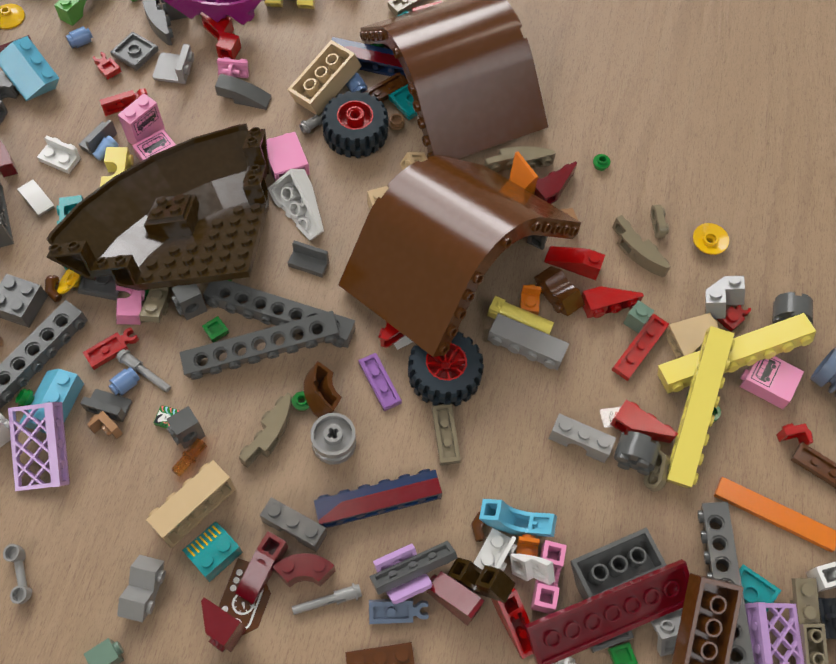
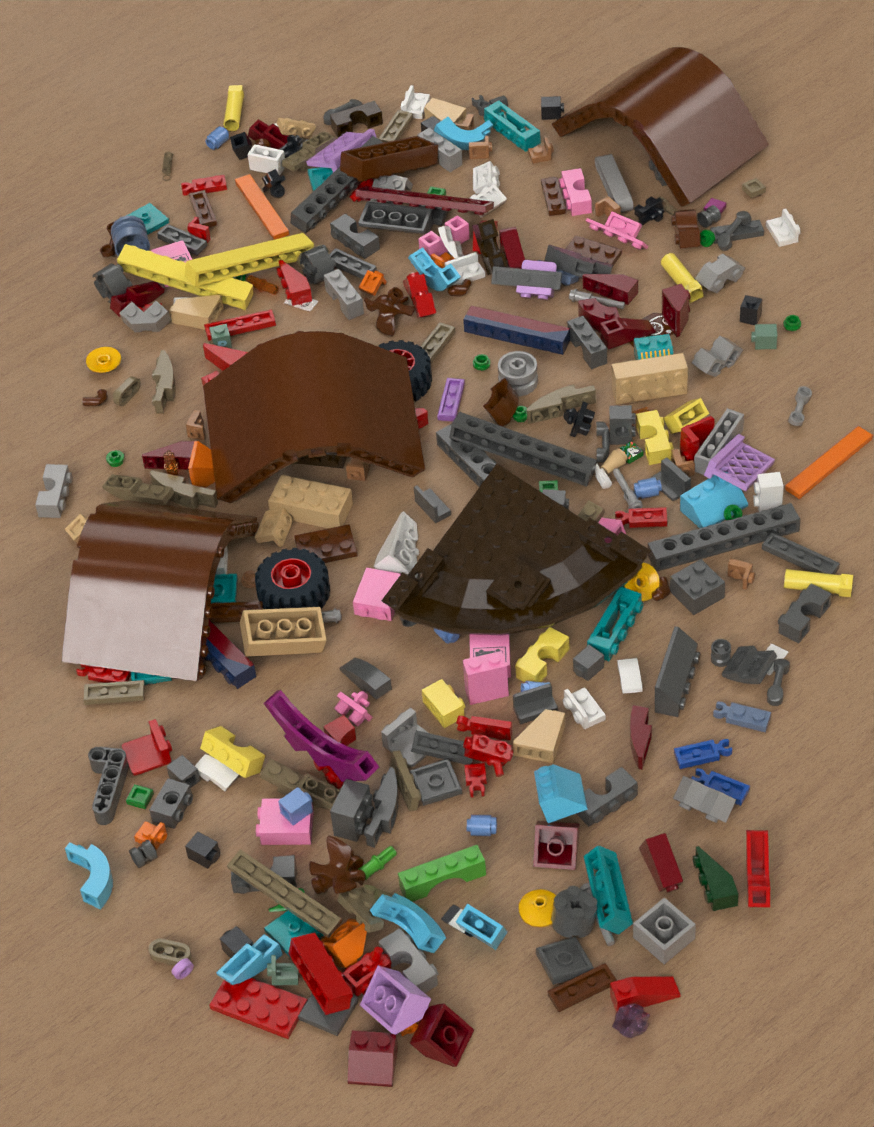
camera: 135 degrees left, 15 degrees down
(74, 185) = (588, 663): none -> dark grey brick
(75, 114) = (541, 737): none -> tan slope
(76, 468) = (724, 431): none -> light grey brick
(102, 456) = (694, 436): none -> red bracket
(105, 78) = (487, 750): none -> red brick
(130, 482) = (685, 415): none -> light yellow brick
(143, 69) = (440, 747): none -> dark grey plate
(154, 37) = (405, 781): none -> dark tan plate
(162, 455) = (651, 426): none -> light yellow arch
(170, 101) = (443, 703): none -> light yellow brick
(173, 395) = (615, 460): none -> tan cone
(178, 375) = (602, 477): none -> white axle
(207, 424) = (602, 430): none -> dark grey bar
(240, 421) = (577, 418): none -> black hips
(313, 630) = (613, 286): none -> dark red slope
(365, 176) = (329, 544): none -> reddish brown plate
(383, 434) = (481, 362): none -> green plate
(386, 628) = (575, 263): none -> dark grey slope
(513, 484) = (418, 292): none -> red arch
(523, 447) = (388, 307): none -> reddish brown animal
(544, 165) = (170, 463): none -> clear orange axle
(556, 139) = (135, 490): none -> dark tan slope
(559, 93) = (76, 526): none -> tan bracket
(570, 475) = (372, 282): none -> orange bracket
(613, 486) = (351, 263): none -> dark grey plate
(620, 117) = (56, 480): none -> light grey arch
(662, 526) = (345, 231): none -> dark grey arch
(667, 407) = (262, 285): none -> clear orange axle
(673, 204) = (96, 401): none -> reddish brown arm
(761, 312) = (138, 294): none -> dark red slope
(792, 543) = (273, 182): none -> black hips
(799, 414) = (172, 234): none -> dark grey plate

